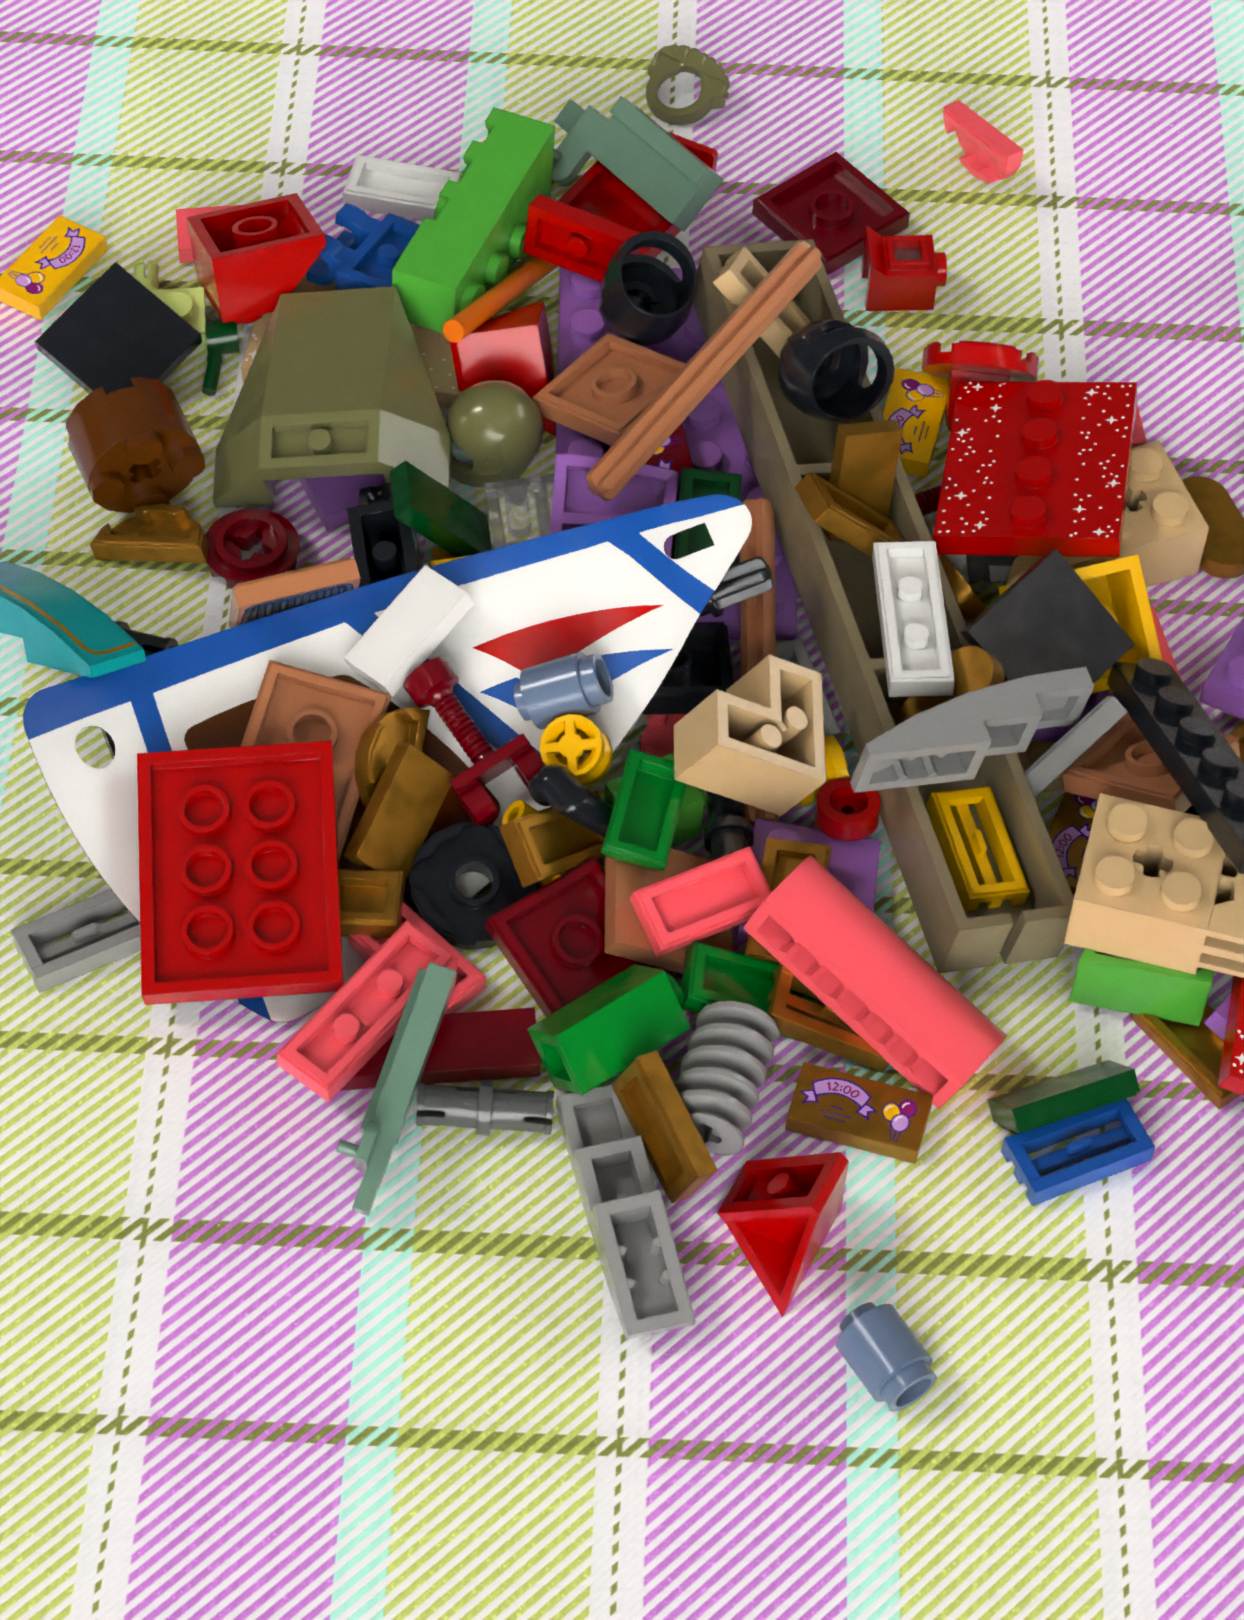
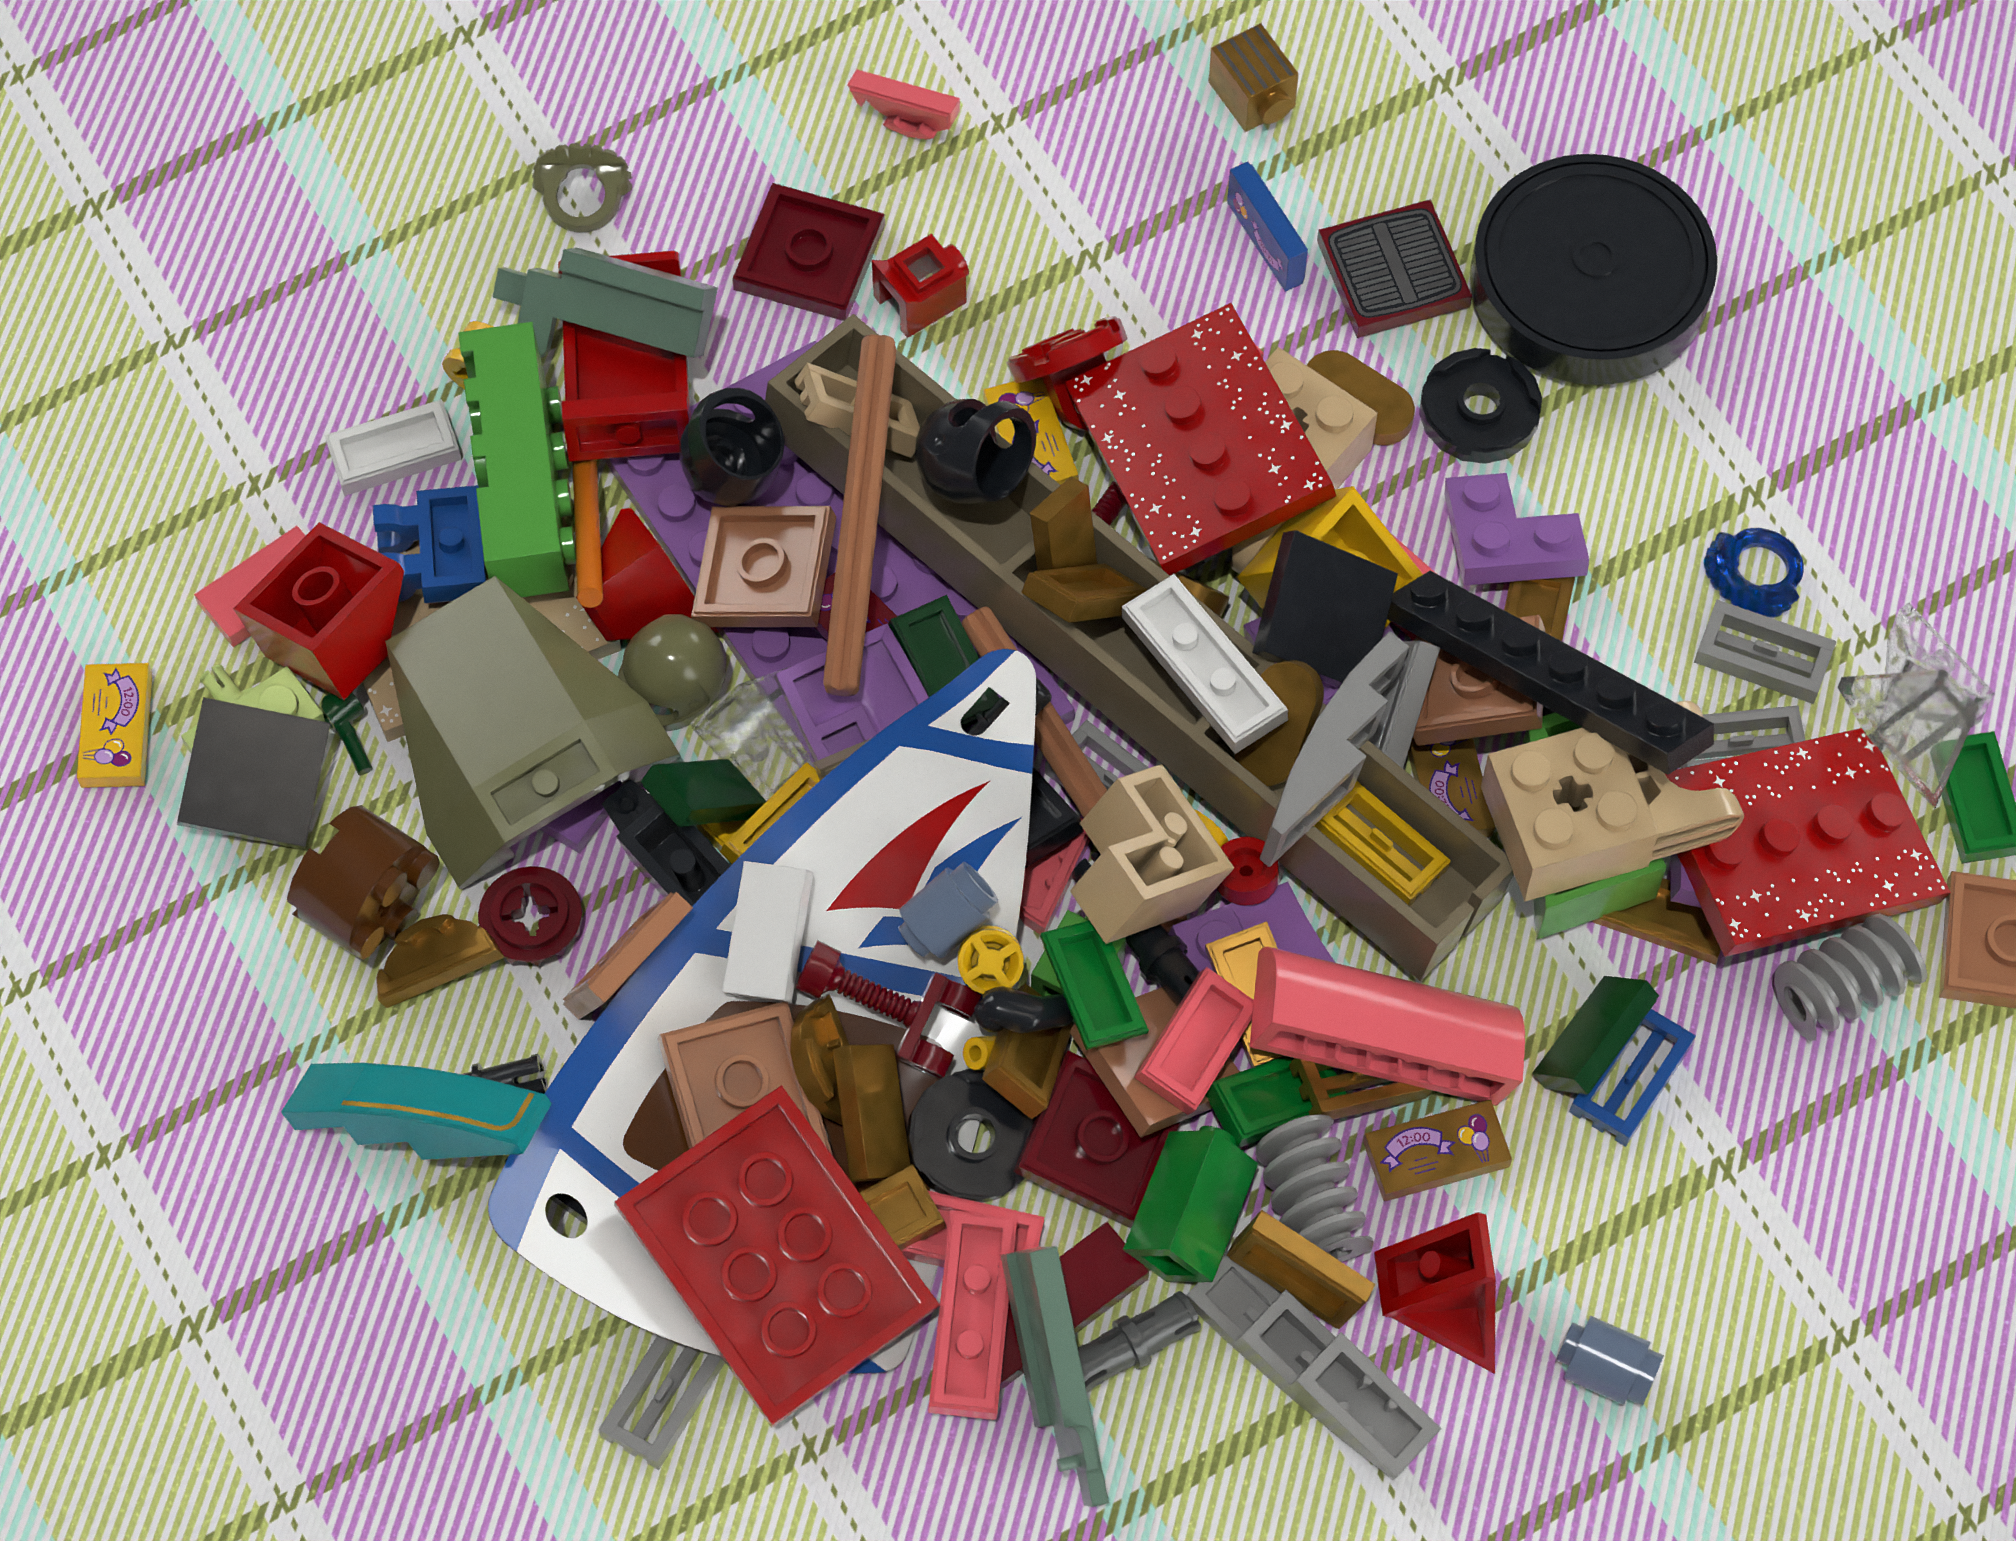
camera: 30 degrees left, 10 degrees up
(1222, 365) = (1267, 226): none -> blue tile

